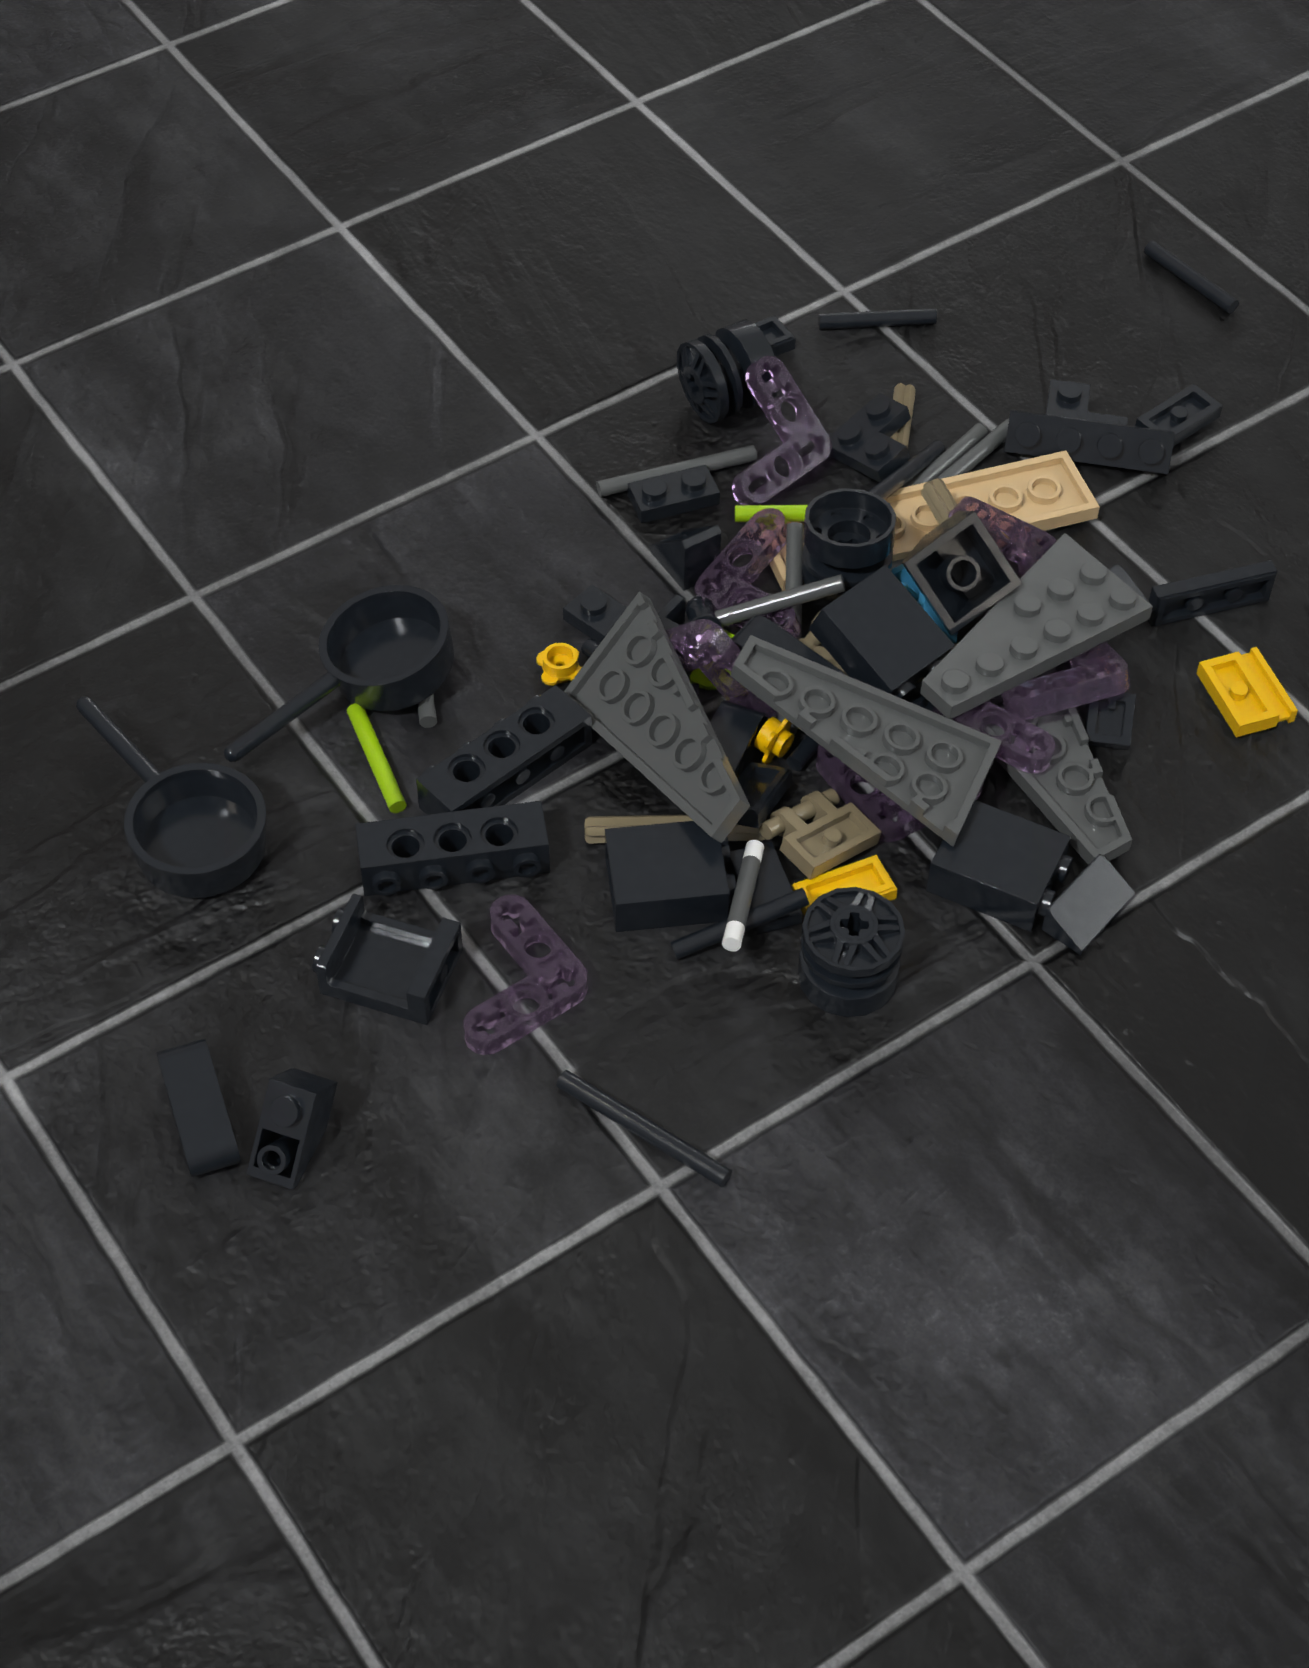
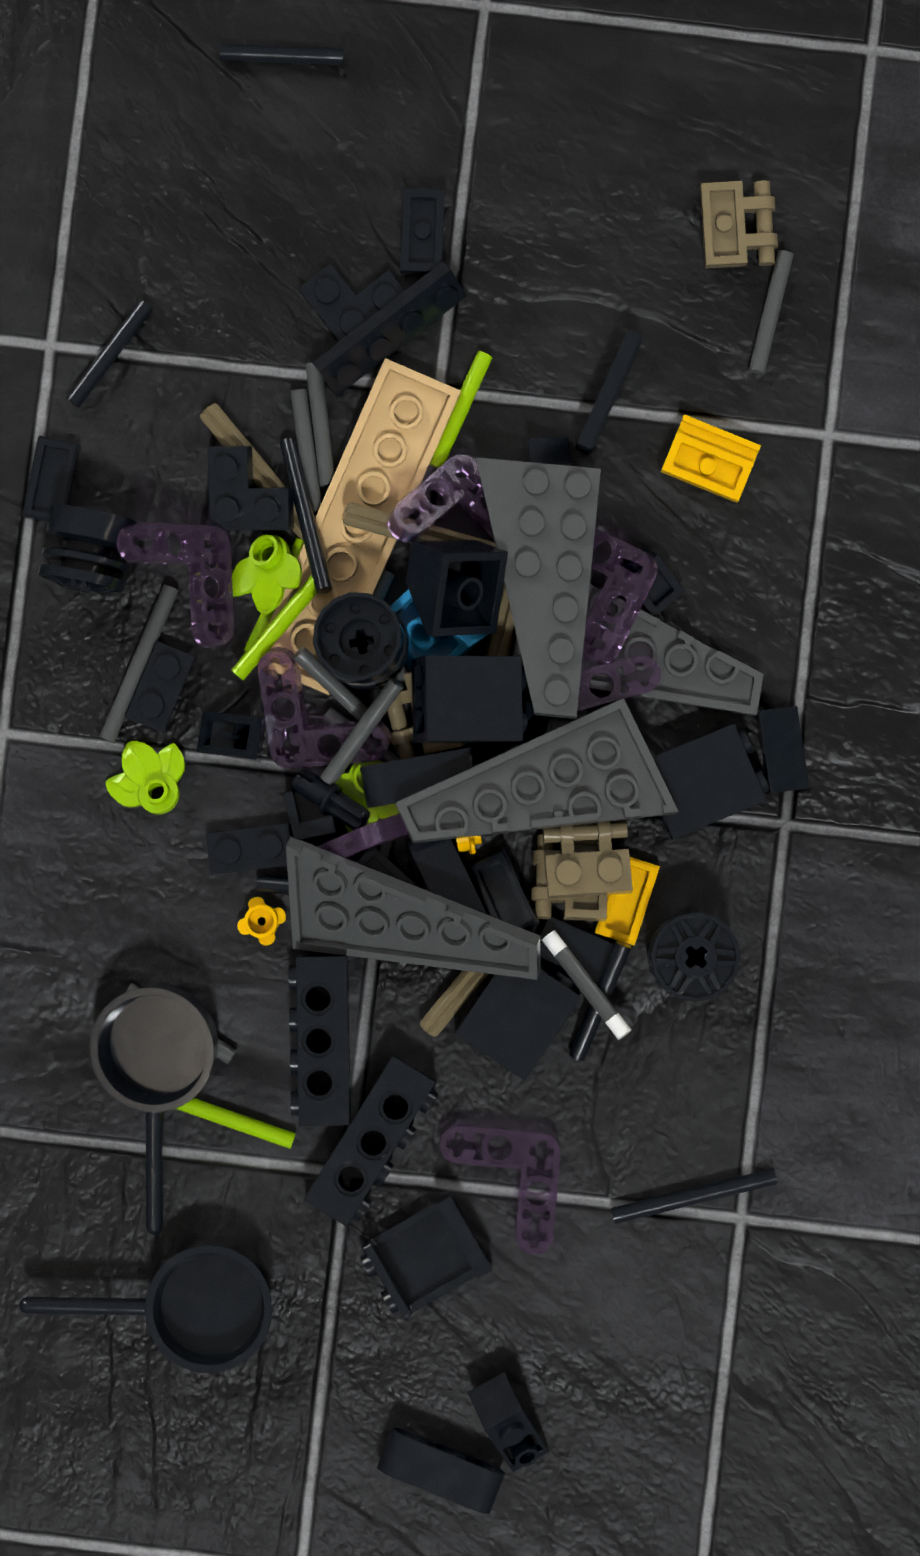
camera: 45 degrees left, 35 degrees up
(597, 529) = (143, 773): none -> lime plate
(837, 480) = (266, 575): none -> lime plate
(839, 829) = (587, 872): none -> dark tan plate
(1097, 522) = (468, 392): none -> lime bar

